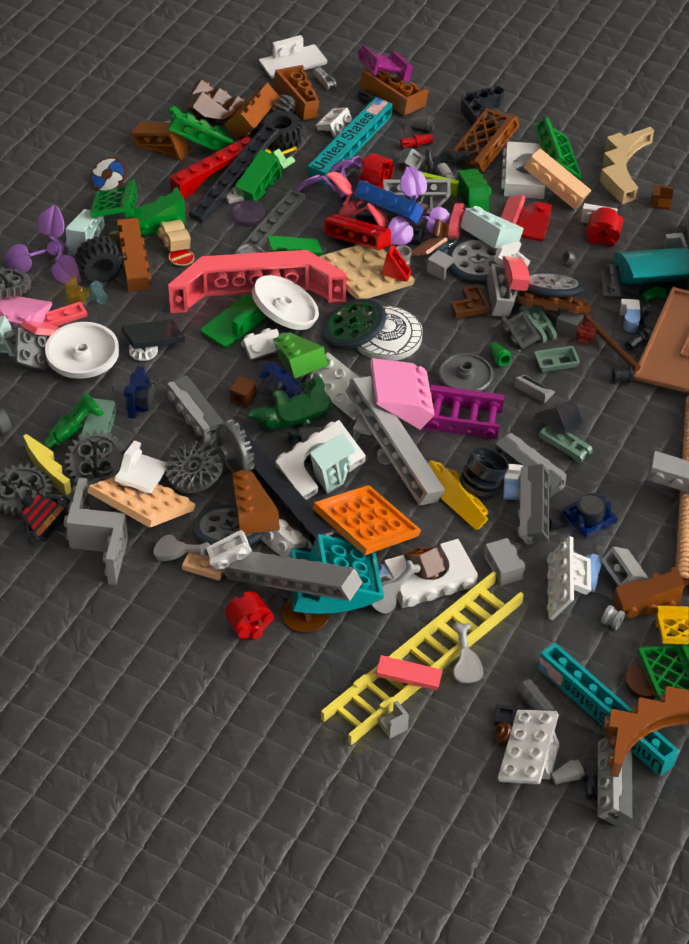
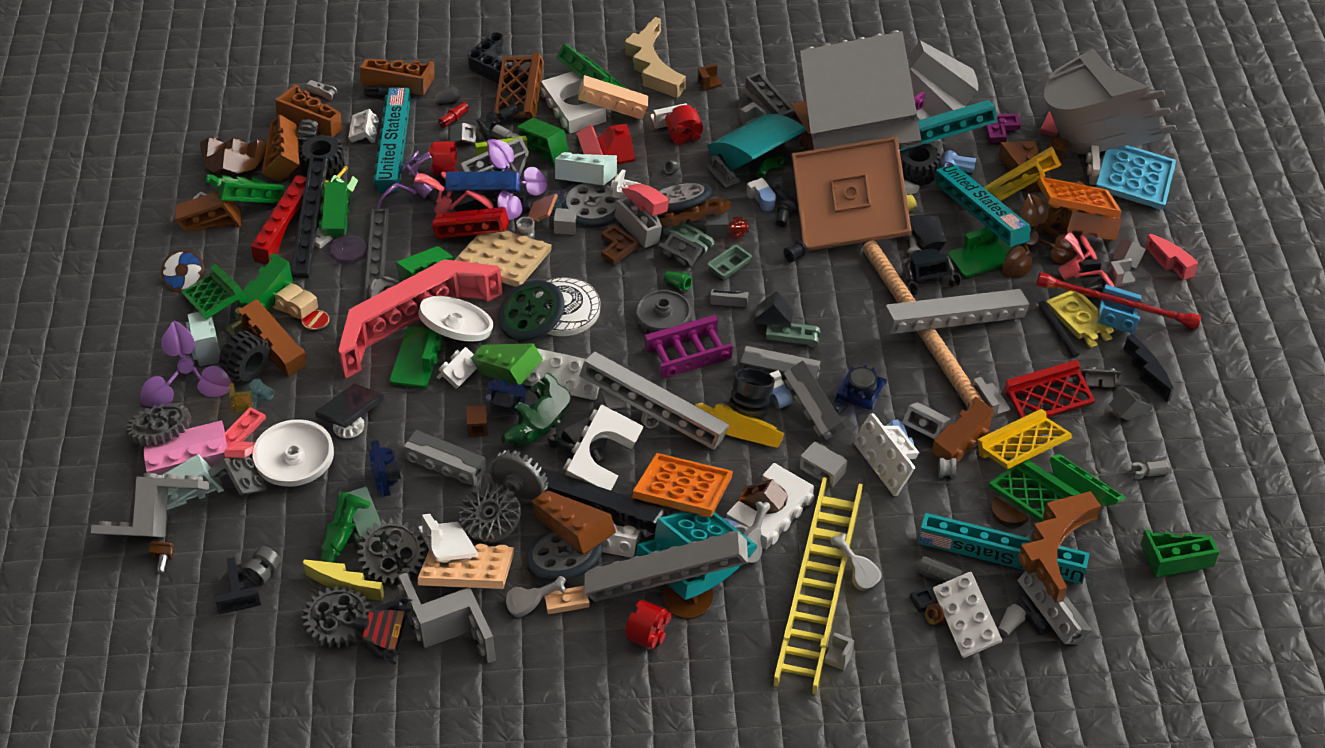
camera: 30 degrees left, 0 degrees up
(228, 550) = (588, 573): white bracket -> none
(292, 53) = (273, 80): white bracket -> none
(331, 461) = (619, 446): light aqua wedge -> none
(391, 63) = (376, 50): magenta fence -> none
(395, 265) = (530, 239): red slope -> none
(403, 390) = (630, 351): bright pink slope -> none
(409, 673) = (824, 603): coral tile -> none
(440, 229) = (542, 188): reddish brown plate -> none
(456, 220) = (548, 174): coral beam -> none
(635, 366) = (770, 228): reddish brown bar -> none

